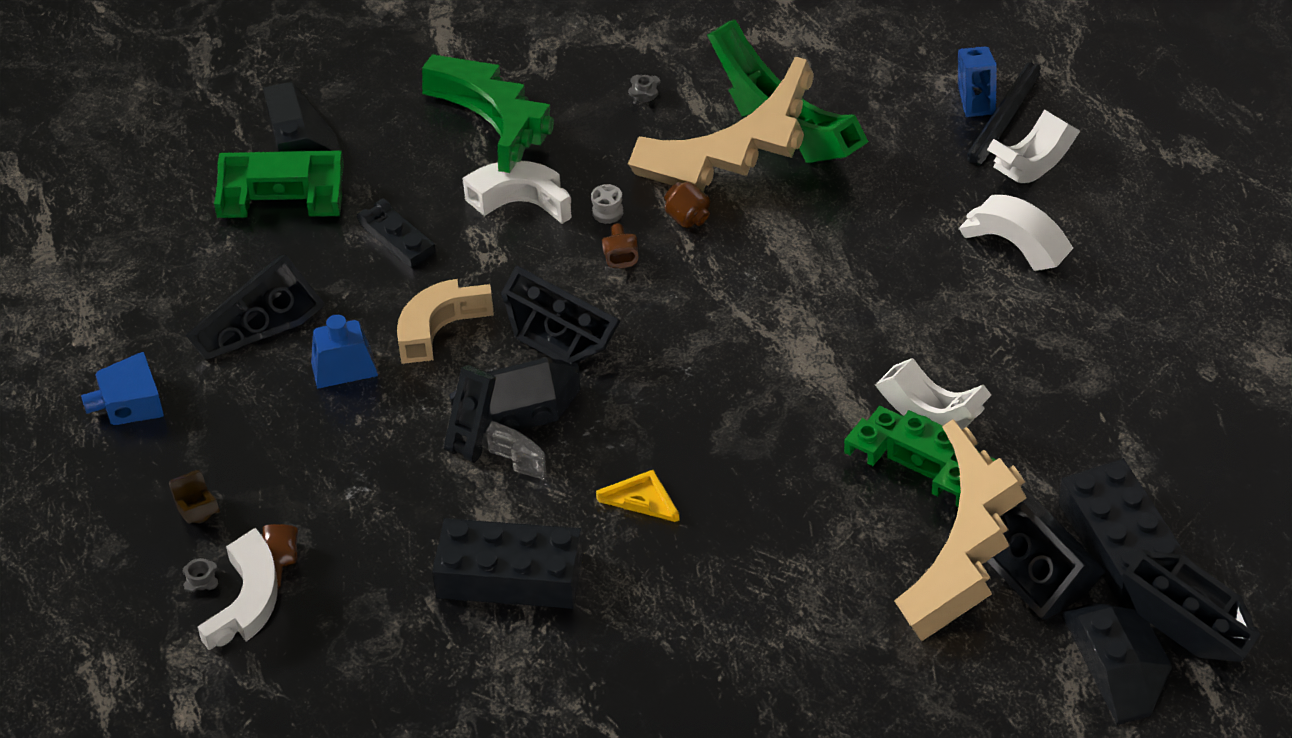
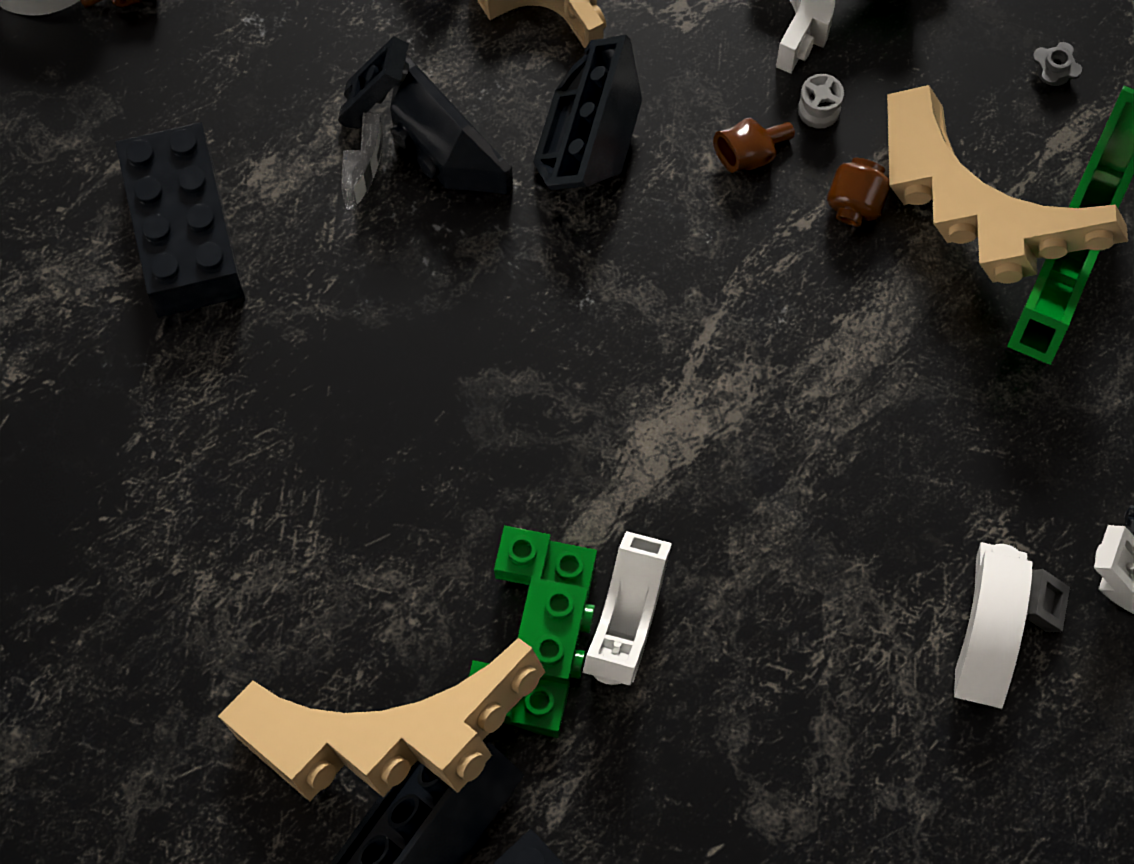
camera: 65 degrees right, 20 degrees up
(640, 494) = (354, 327): yellow tile -> none

